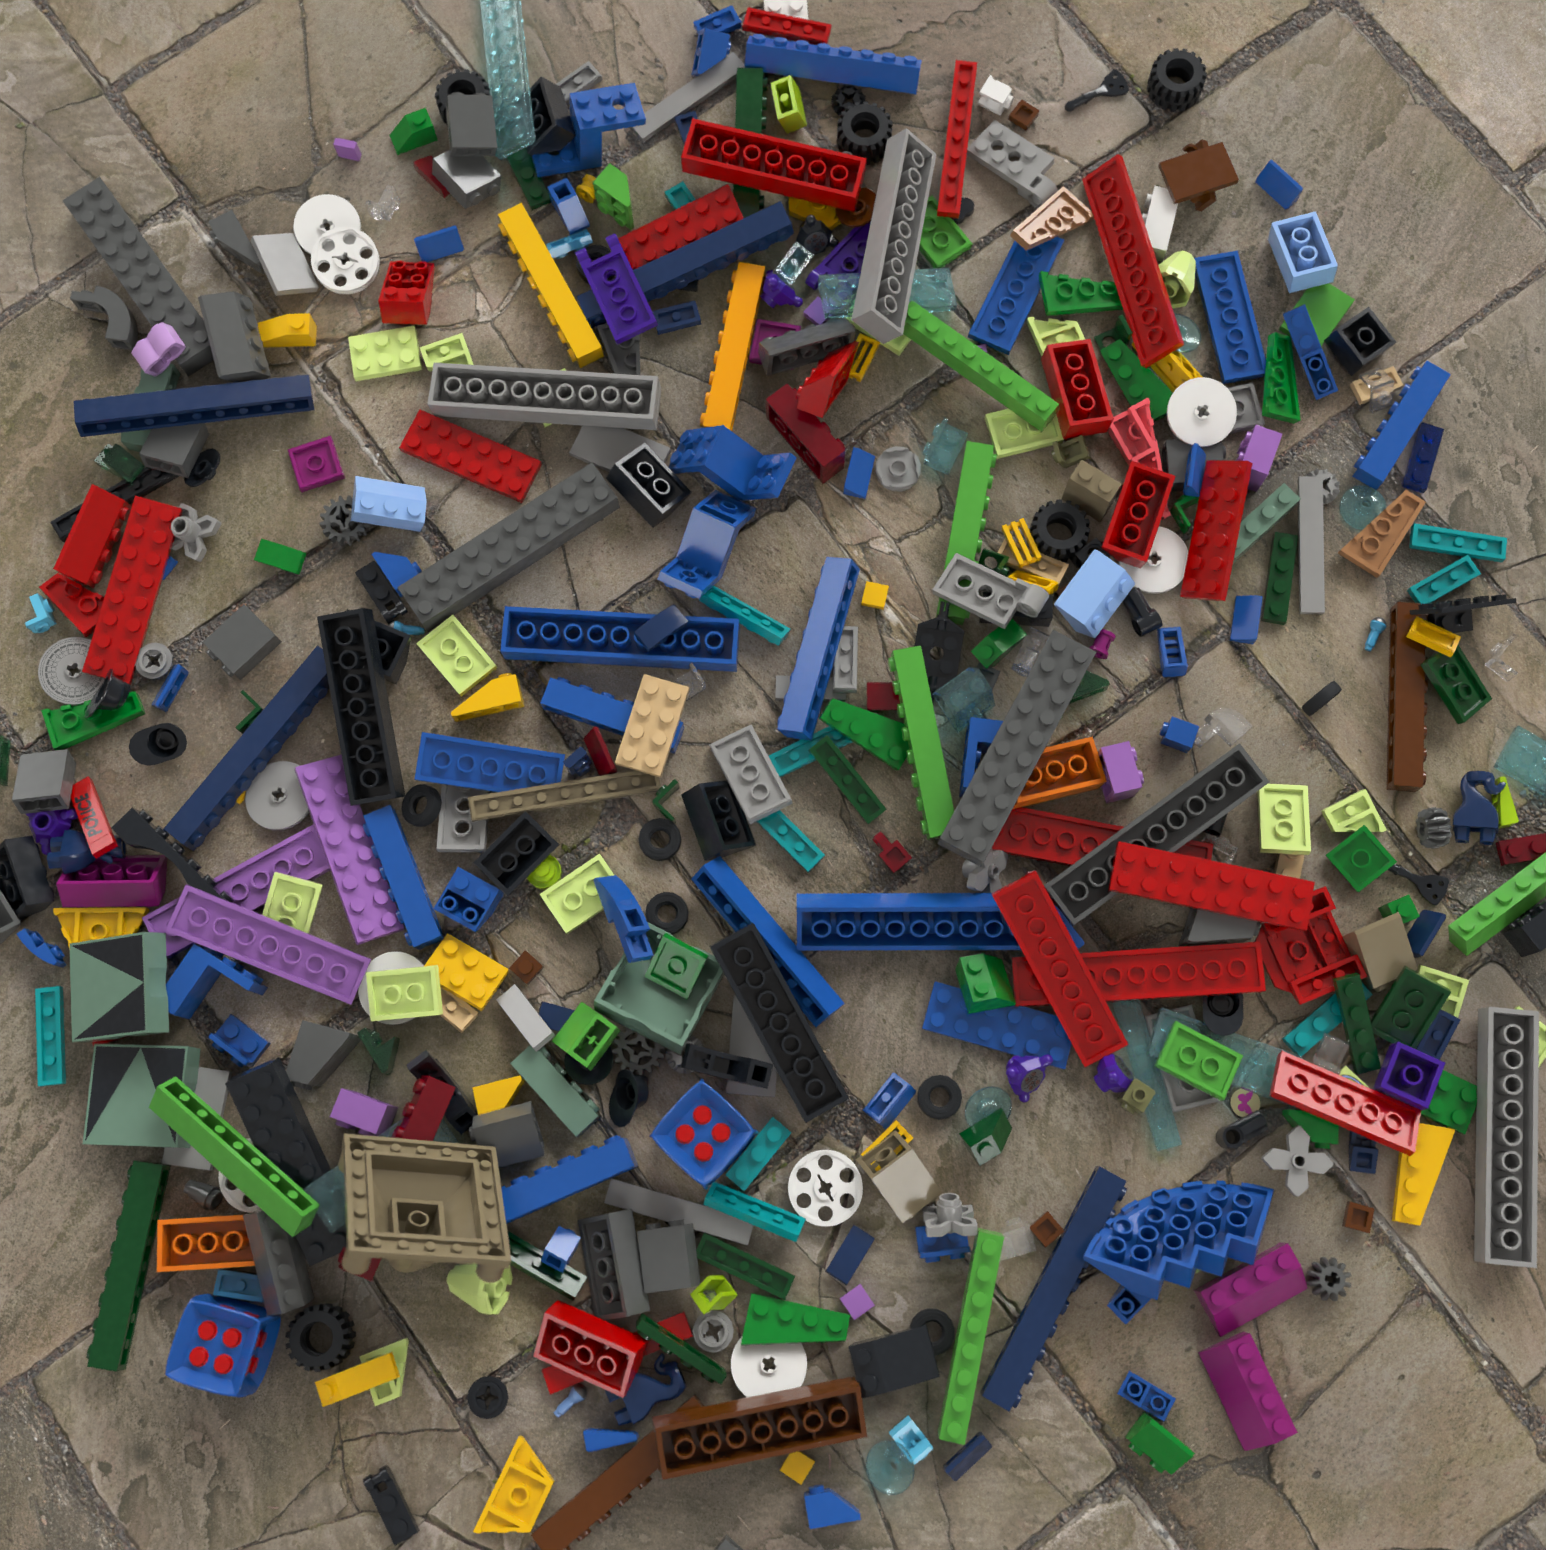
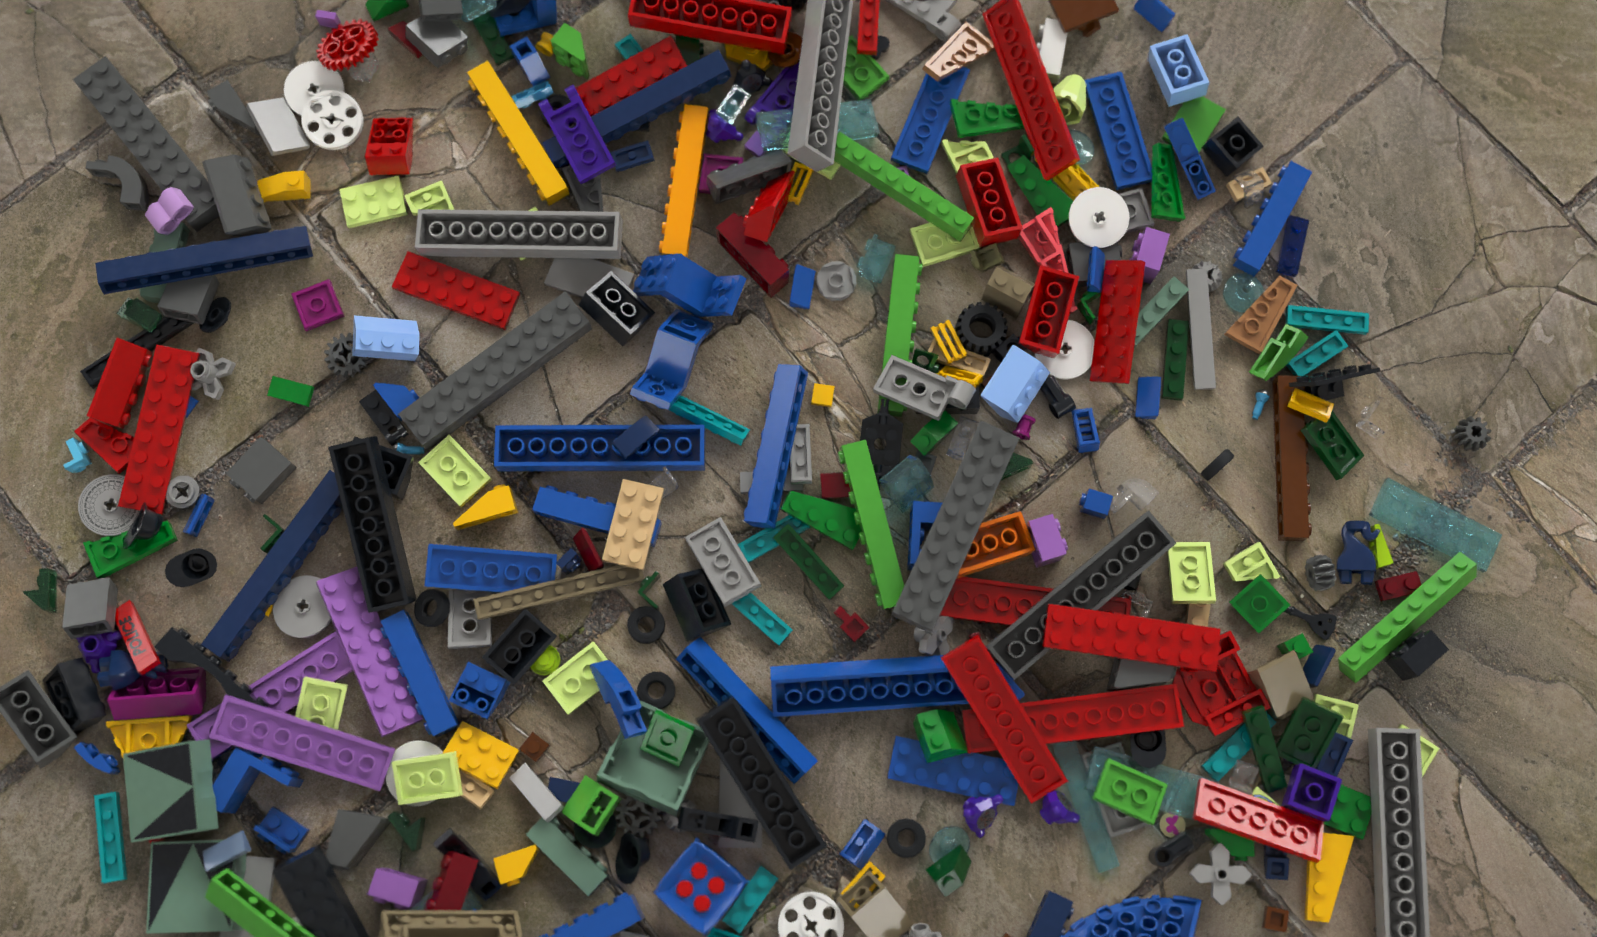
camera: 10 degrees left, 0 degrees up
(176, 1059) = (226, 851): none -> sand blue slope
(367, 178) = (347, 45): none -> red gear
(439, 244) = (416, 101): blue slope -> none
(511, 1131) = (530, 896): dark grey brick -> none
(1136, 1097) = (1077, 827): olive bracket -> none
(1400, 576) = (1278, 352): none -> bright green slope

